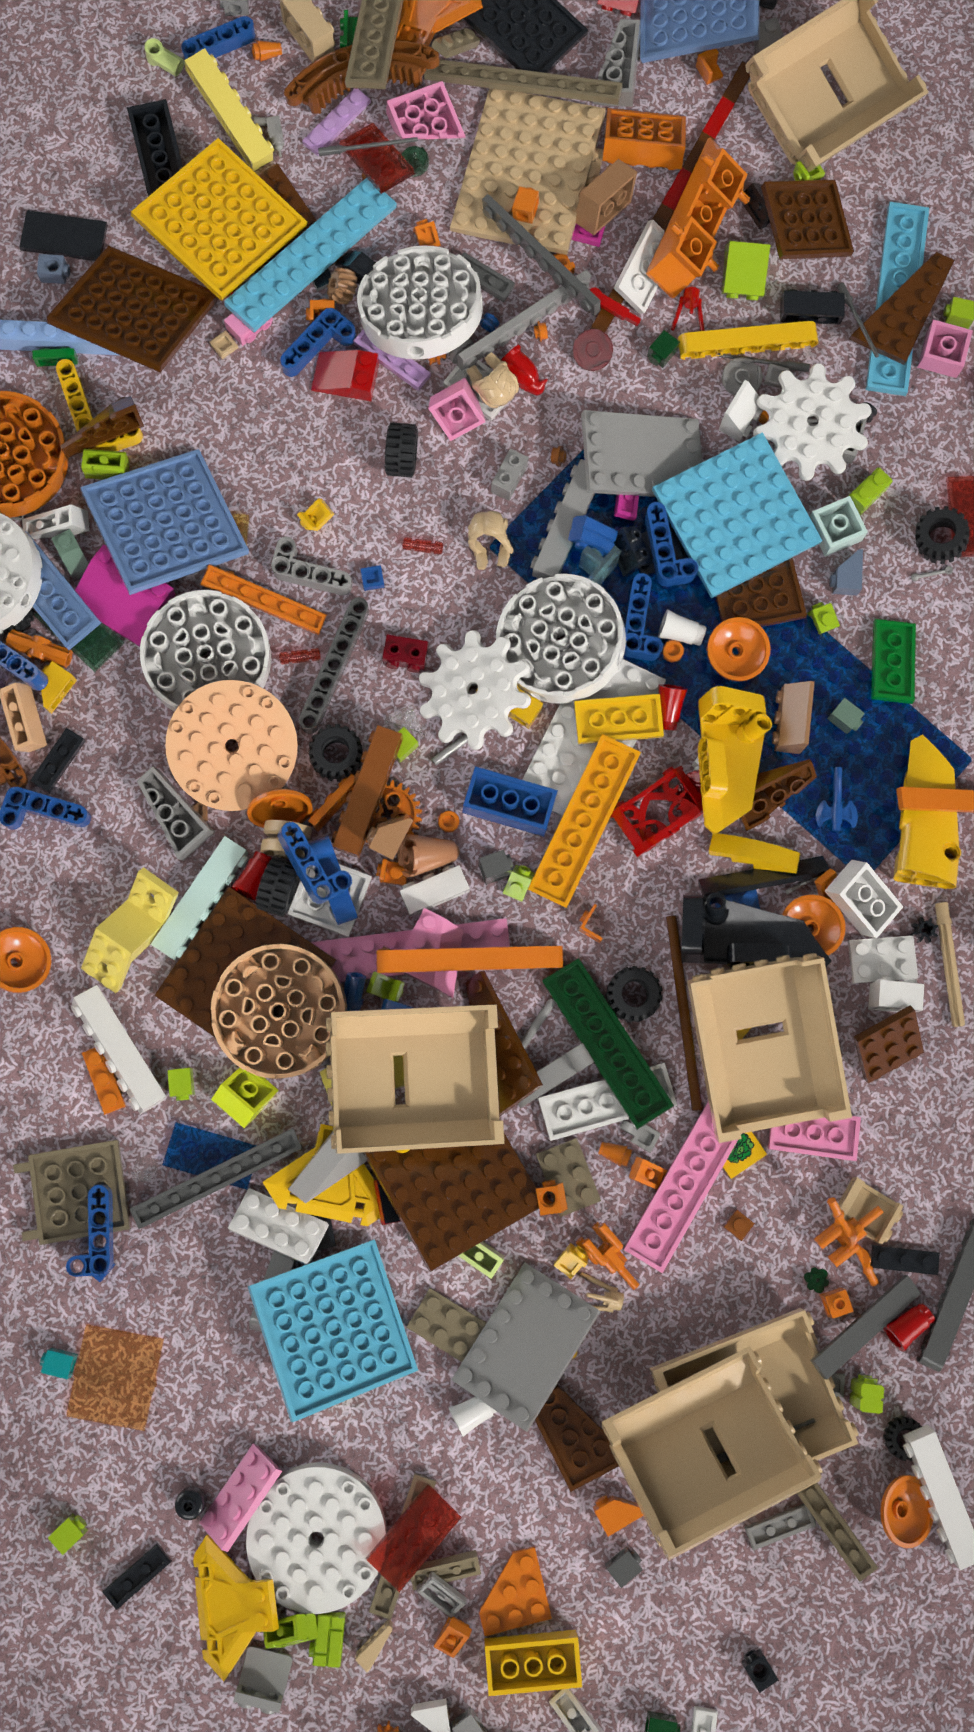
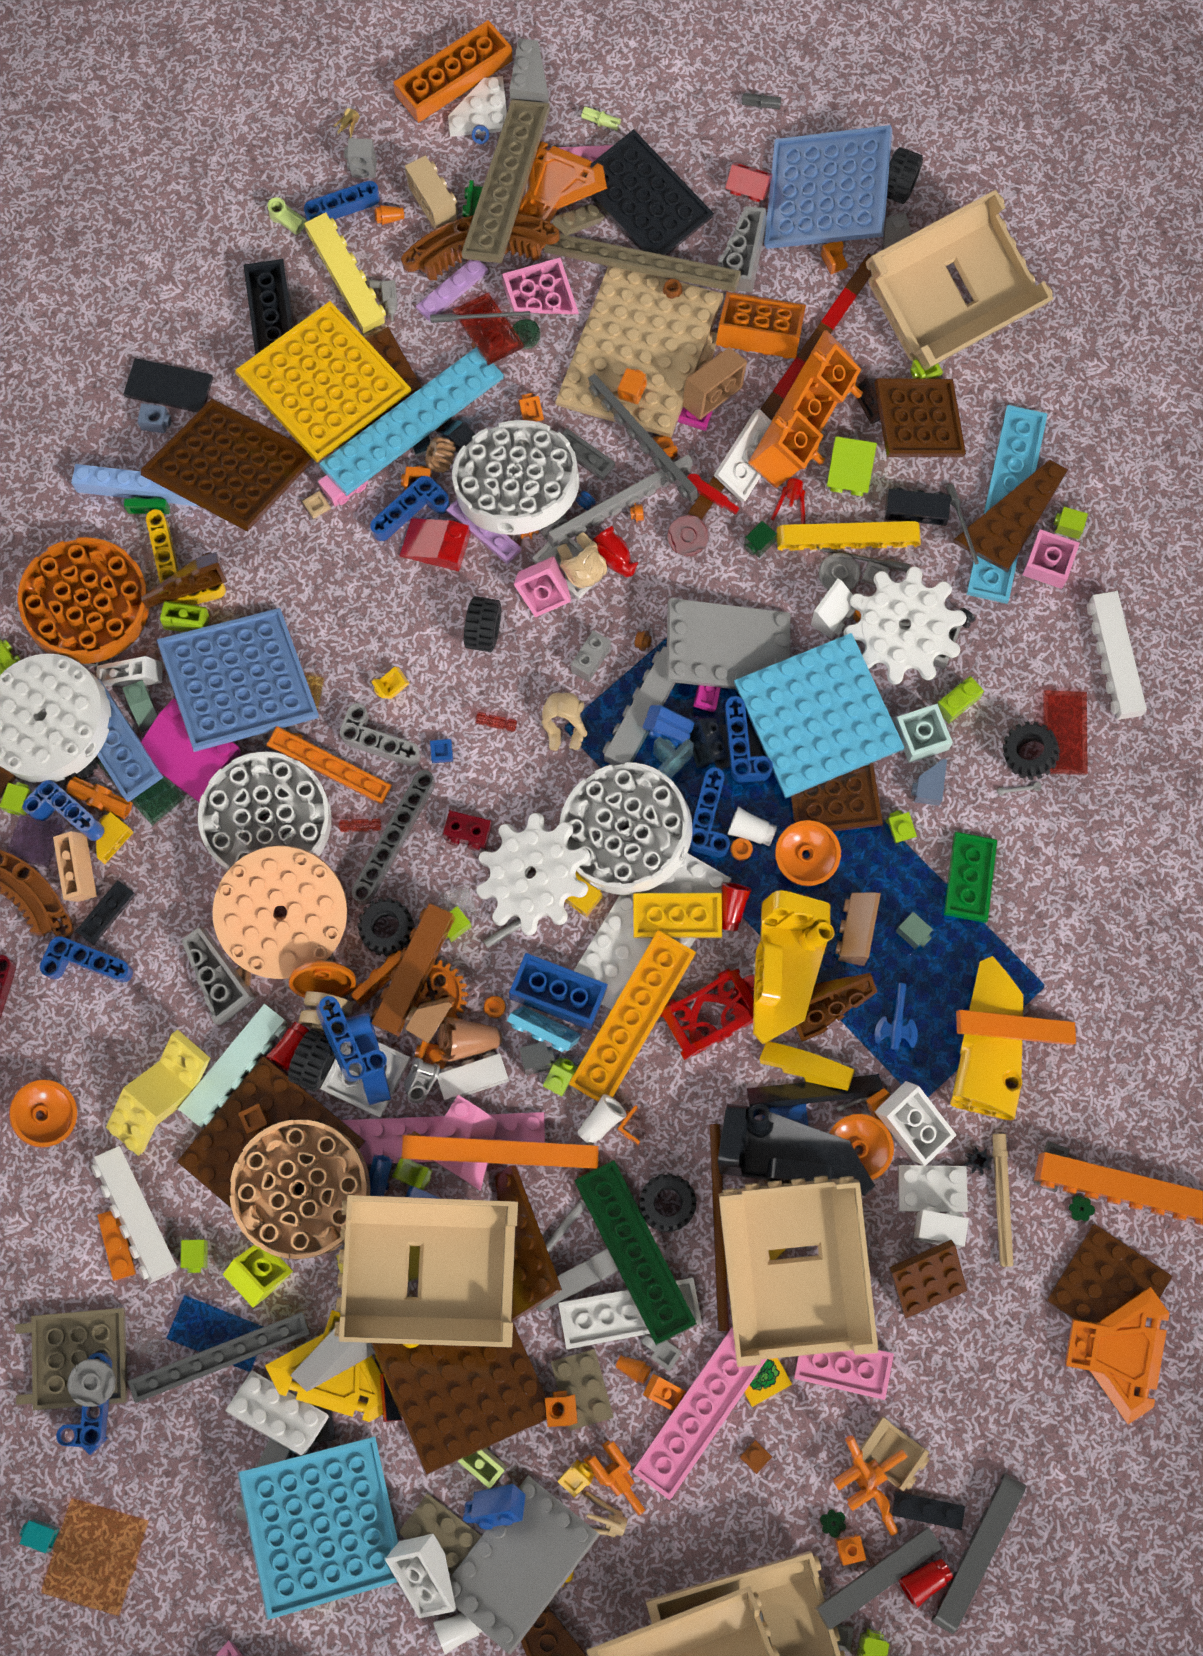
camera: 15 degrees right, 5 degrees down
(95, 1214) = (91, 1382): none -> light grey tile
(226, 947) = (253, 1118): none -> dark orange plate
(385, 893) = (420, 1076): none -> light grey piece
(435, 1365) = (423, 1575): none -> white slope
(498, 1295) = (495, 1507): none -> blue brick
(500, 838) = (544, 1028): none -> medium azure plate
(556, 101) = (672, 284): none -> dark orange plate
(563, 920) = (601, 1120): none -> white plant

